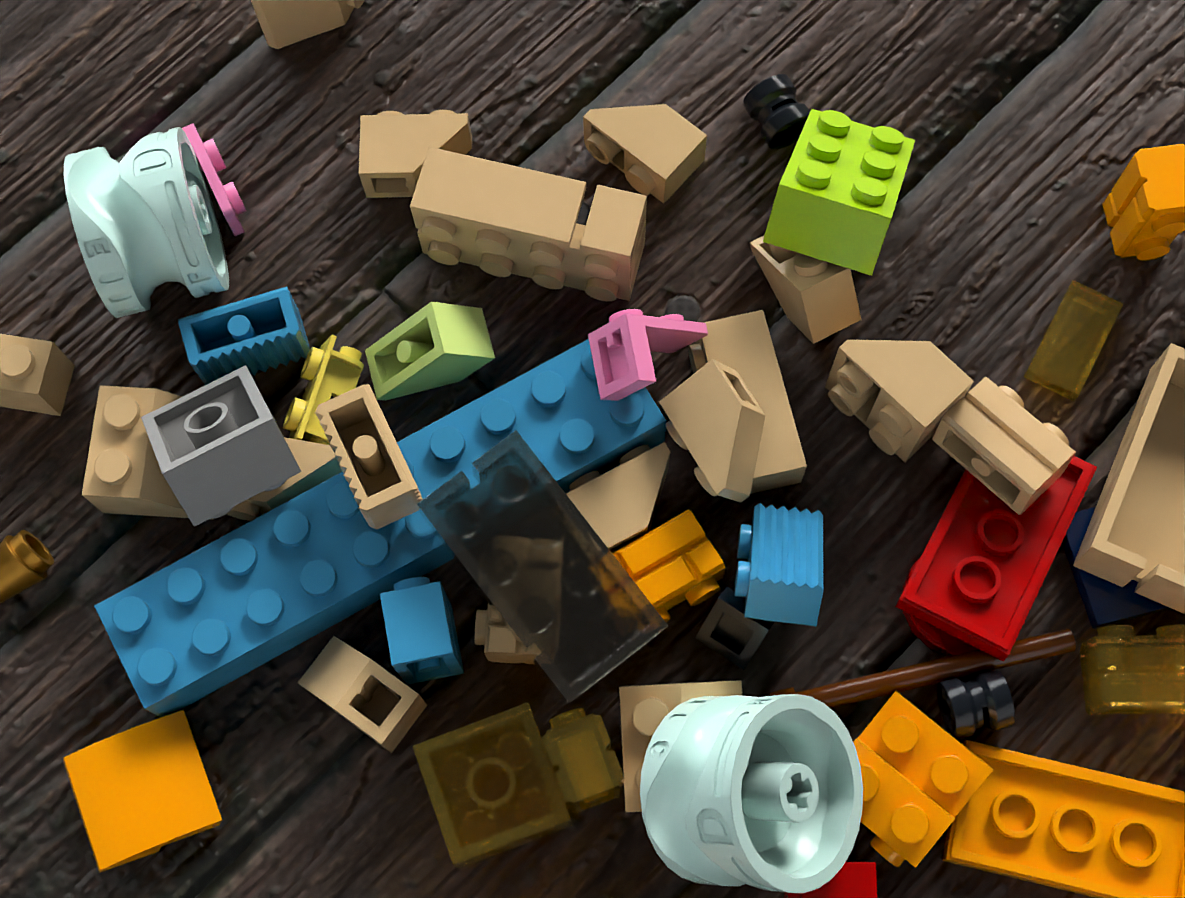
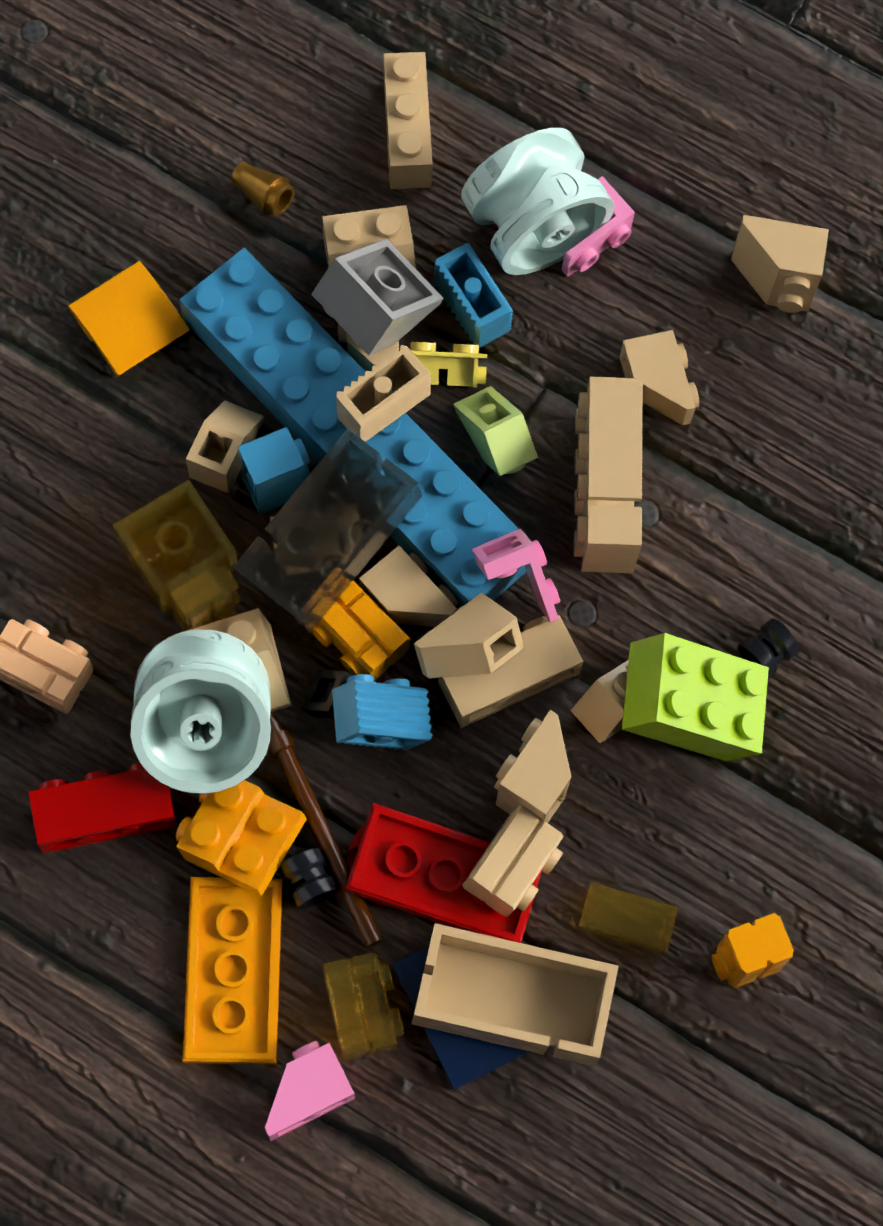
camera: 70 degrees right, 0 degrees up
(647, 144) = (712, 554): tan slope -> none

